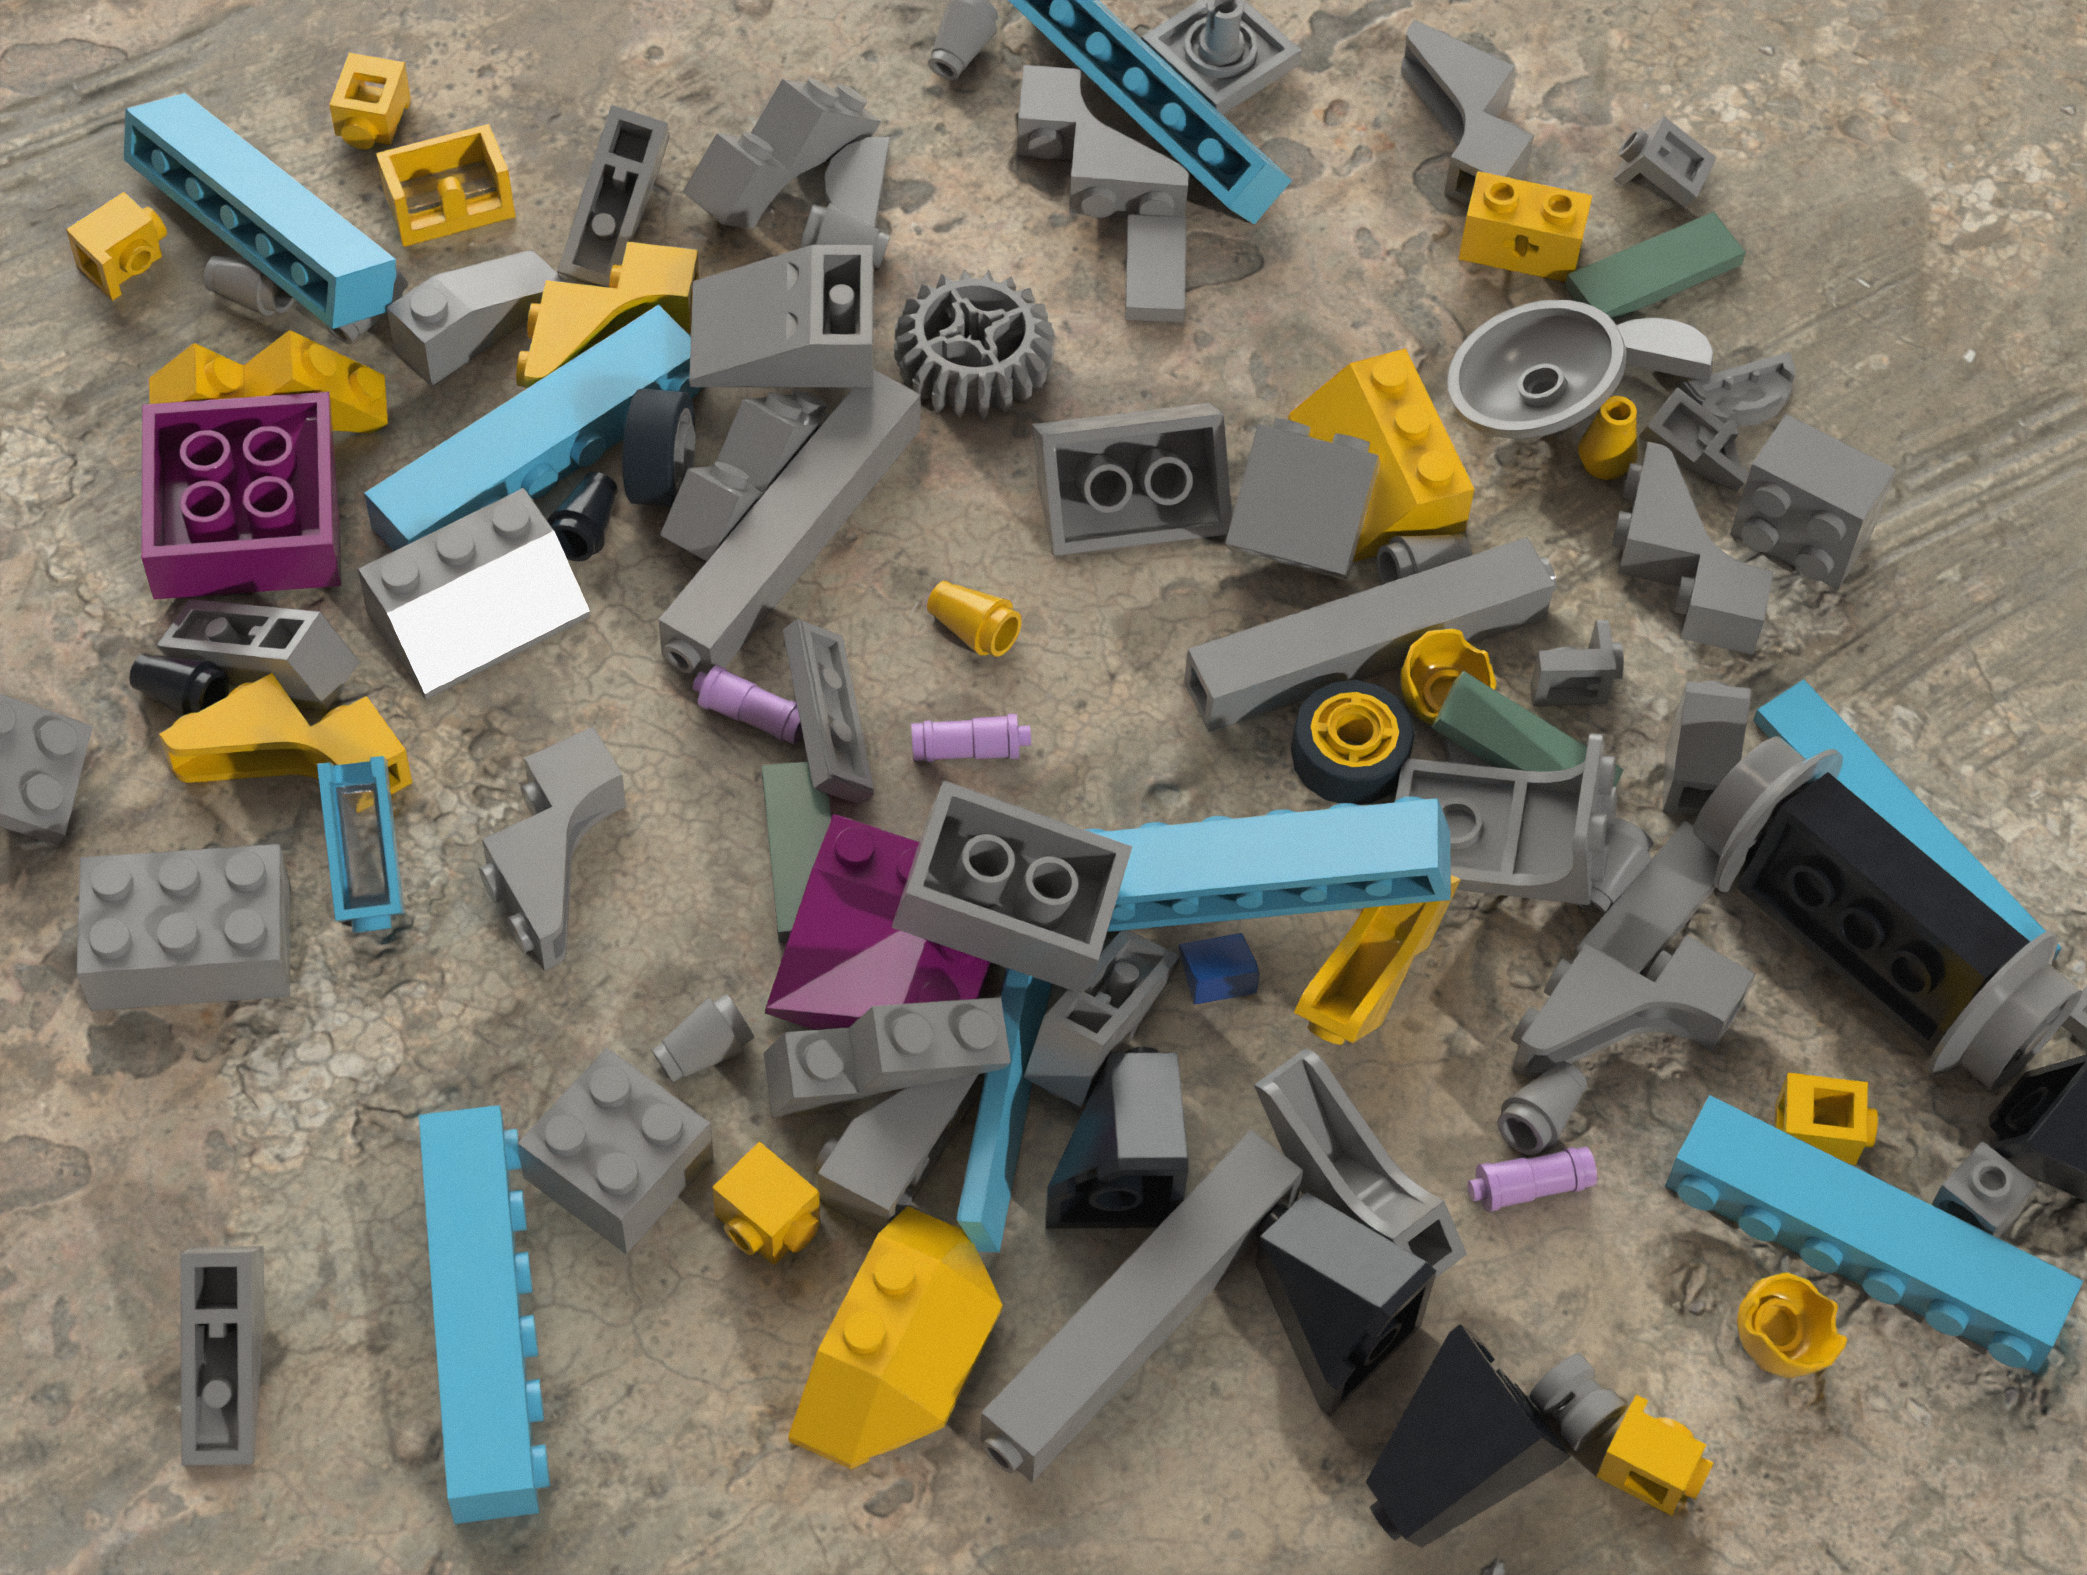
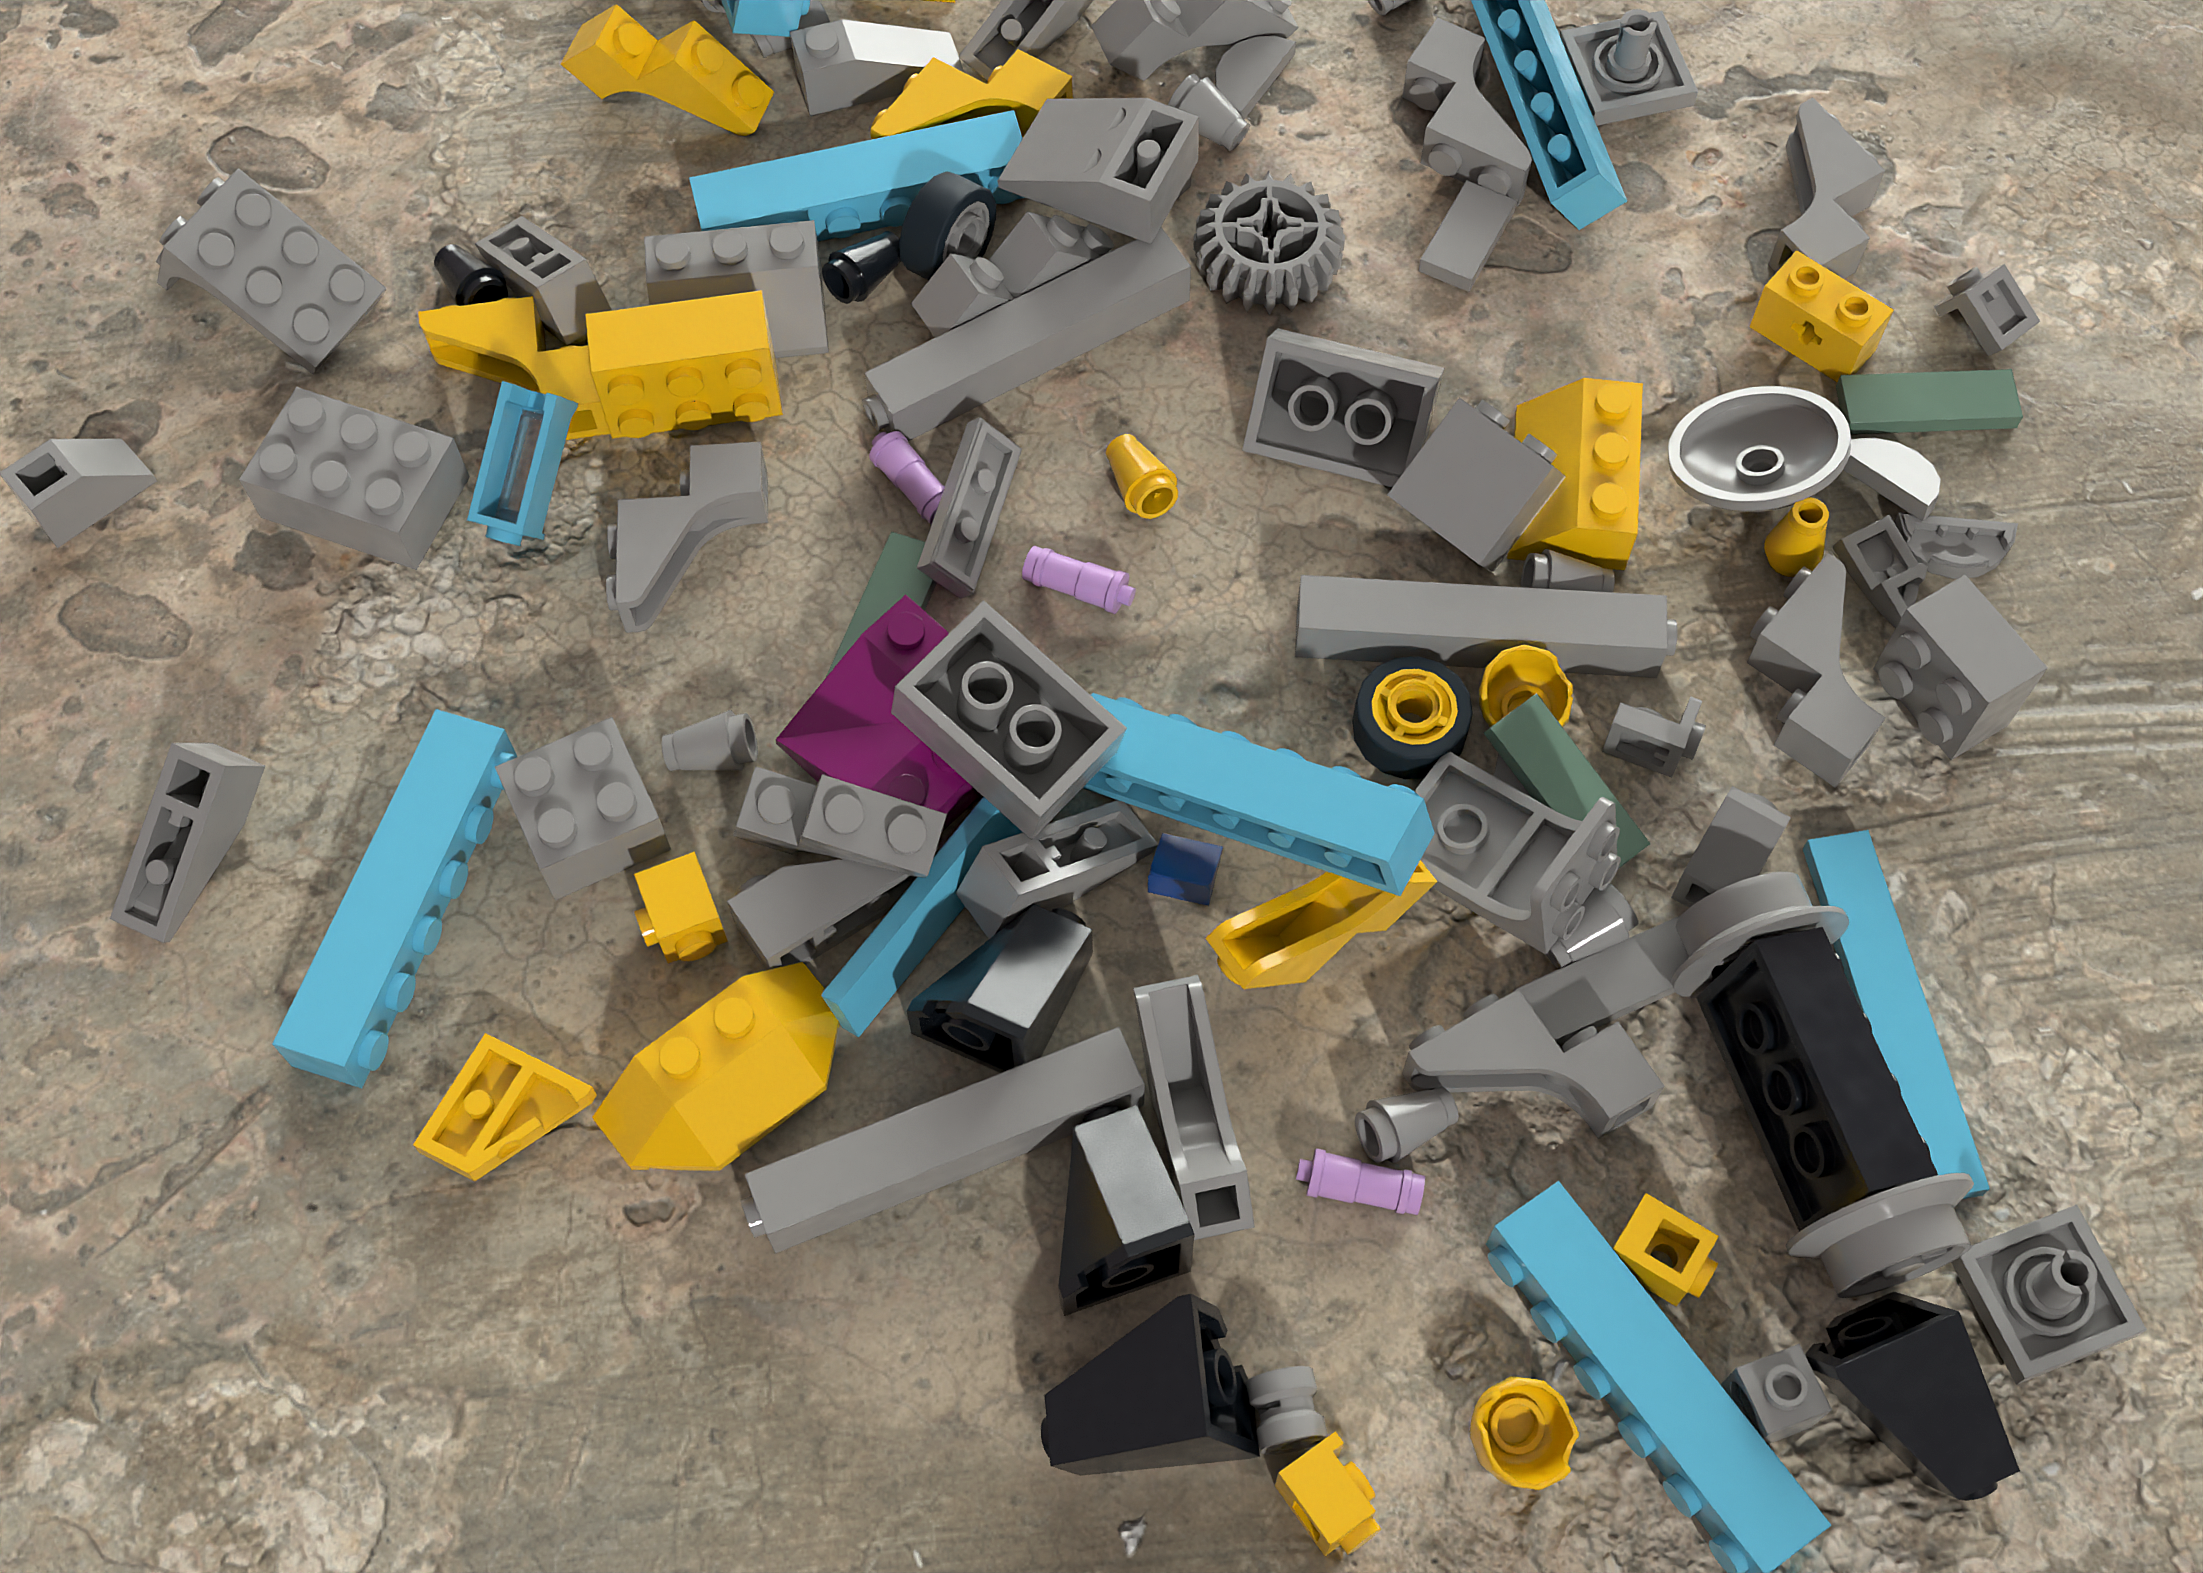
camera: 30 degrees right, 5 degrees up
(239, 496) = (592, 144): magenta slope -> none
(475, 679) = (684, 364): none -> yellow brick
(697, 1465) = (499, 1109): none -> yellow wing

